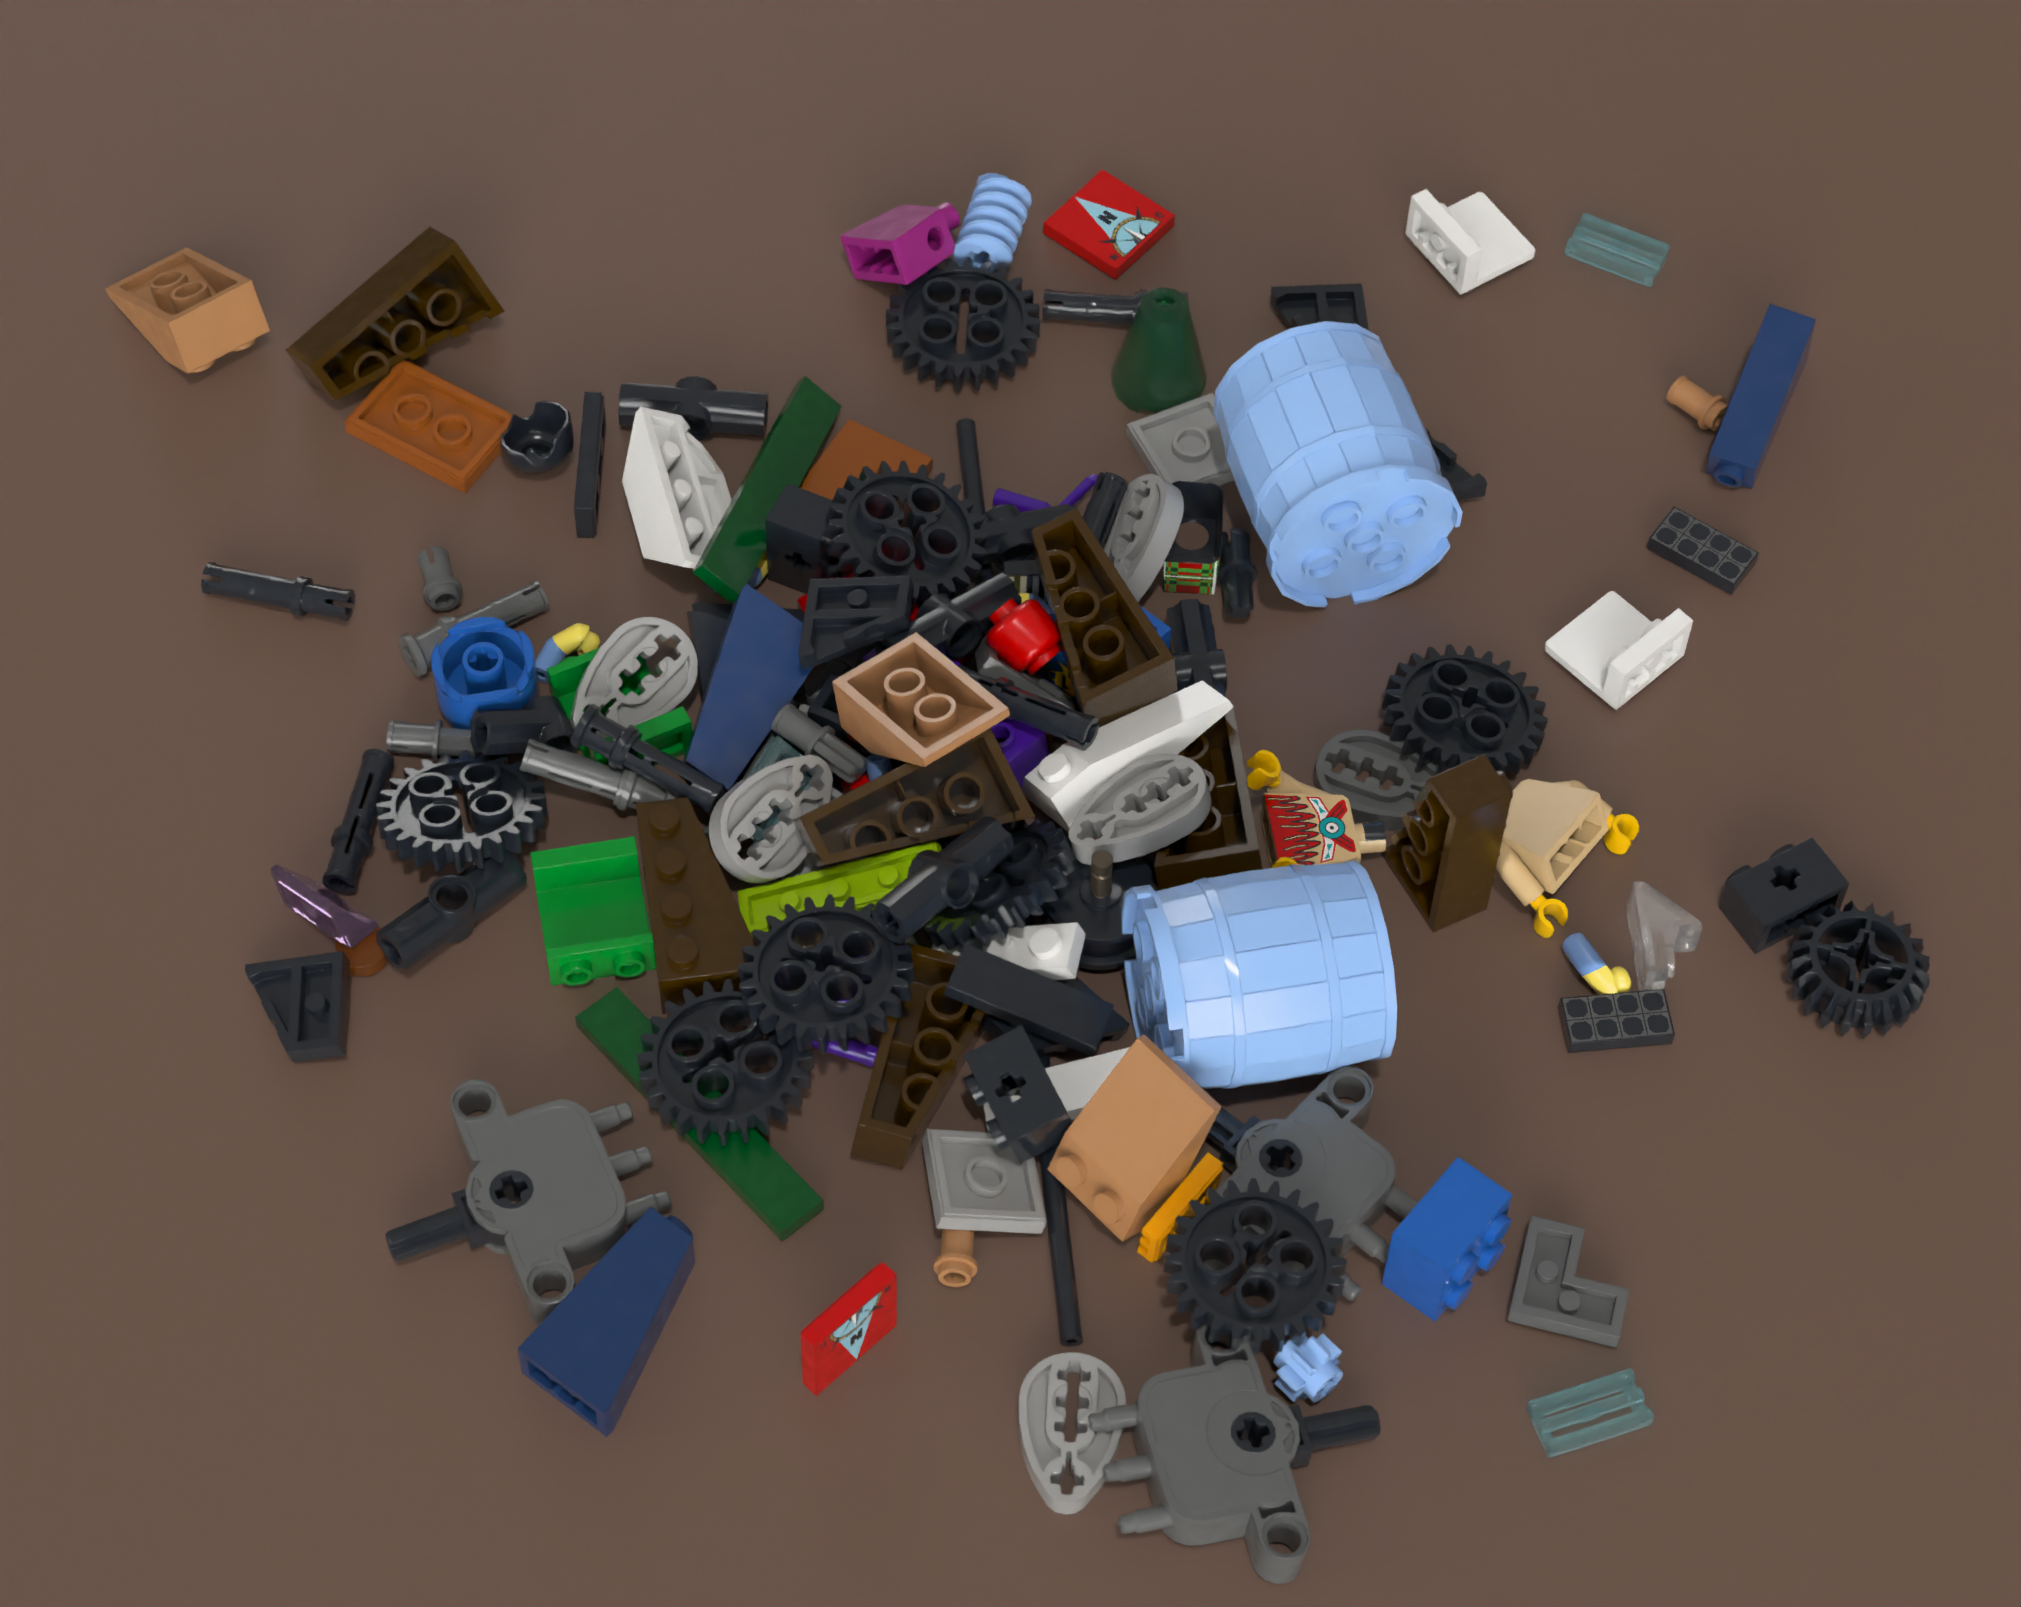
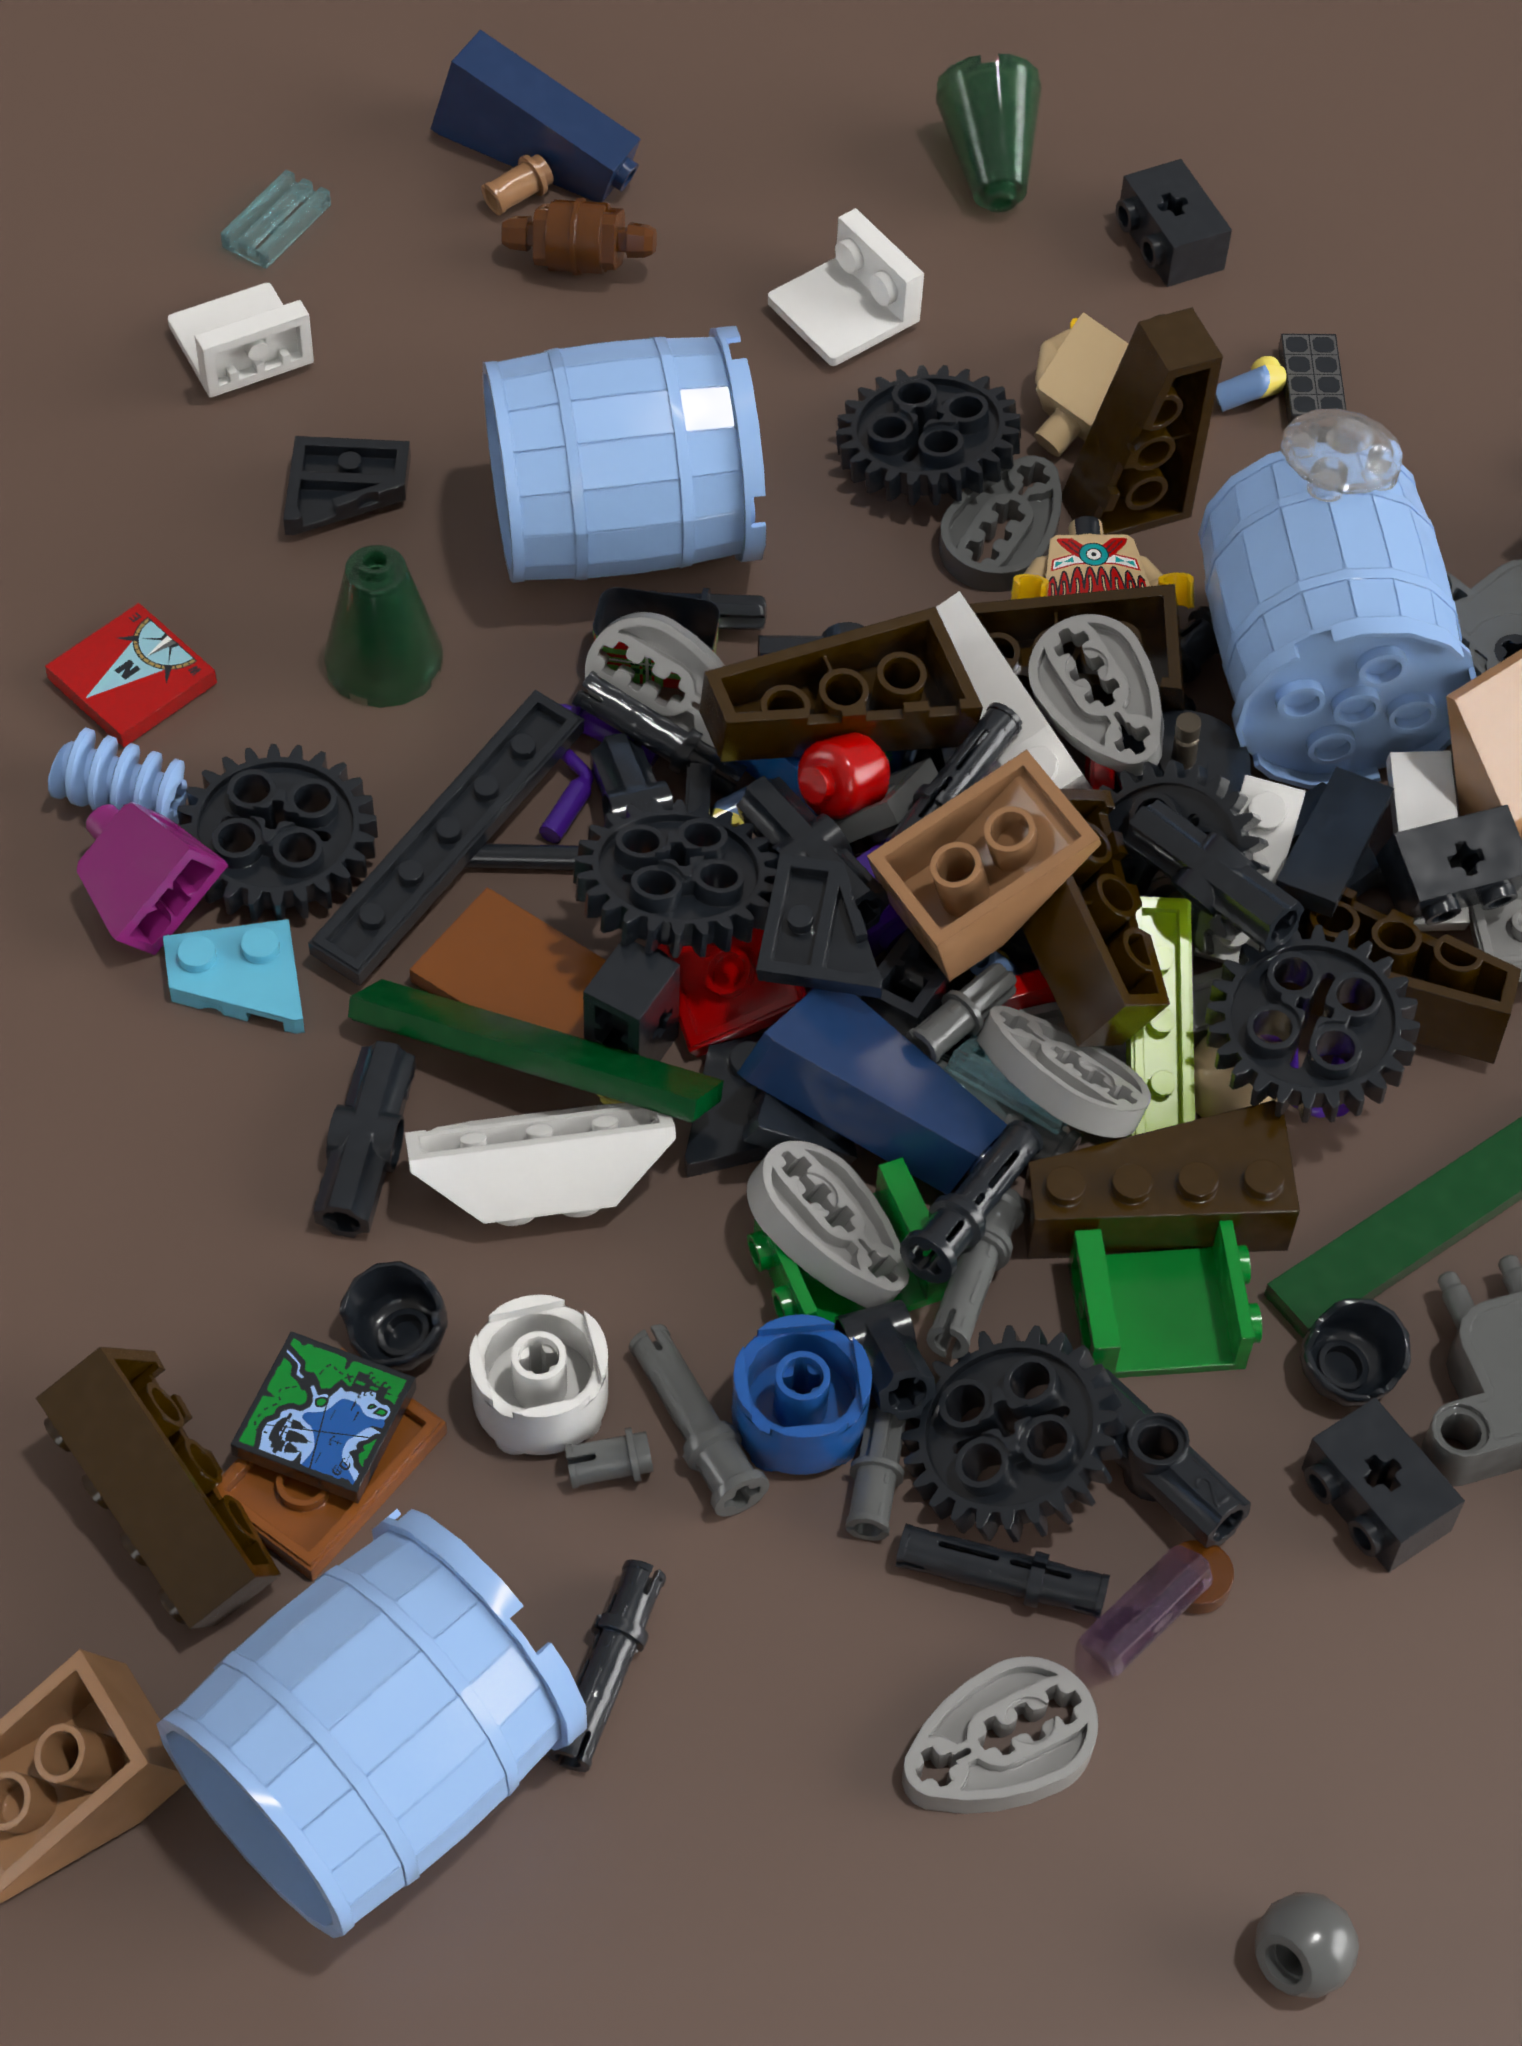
camera: 85 degrees left, 0 degrees up
(62, 1008) = (1307, 1940): none -> dark grey piece
(190, 425) = (372, 1722): none -> light blue piece
(209, 847) = (992, 1700): none -> light grey piece
(306, 1002) = (1289, 1641): black wing -> none
(435, 1058) = (1381, 1485): none -> black brick
(456, 407) = (324, 1416): none -> tile
(492, 522) = (539, 1375): none -> white brick
(549, 1039) = (1356, 1352): none -> black hair
(562, 644) = (732, 1309): arm -> none
(590, 465) = (449, 1261): black tile -> none
(748, 1096) = (1398, 1164): black gear -> none
(839, 325) = (237, 972): none -> medium azure wing
(973, 425) = (446, 838): none -> black tile
(1092, 306) = (288, 654): black pin -> none
(1182, 443) = (501, 638): light grey tile -> none
(1356, 908) = (1341, 453): none -> clear dish
(1634, 444) = (579, 236): none -> reddish brown piece
(1656, 932) = (1238, 332): clear slope -> none
(1702, 550) = (714, 218): black tile -> none
(1849, 738) = (992, 125): none -> clear green cone
(1889, 966) = (1267, 182): black gear -> none

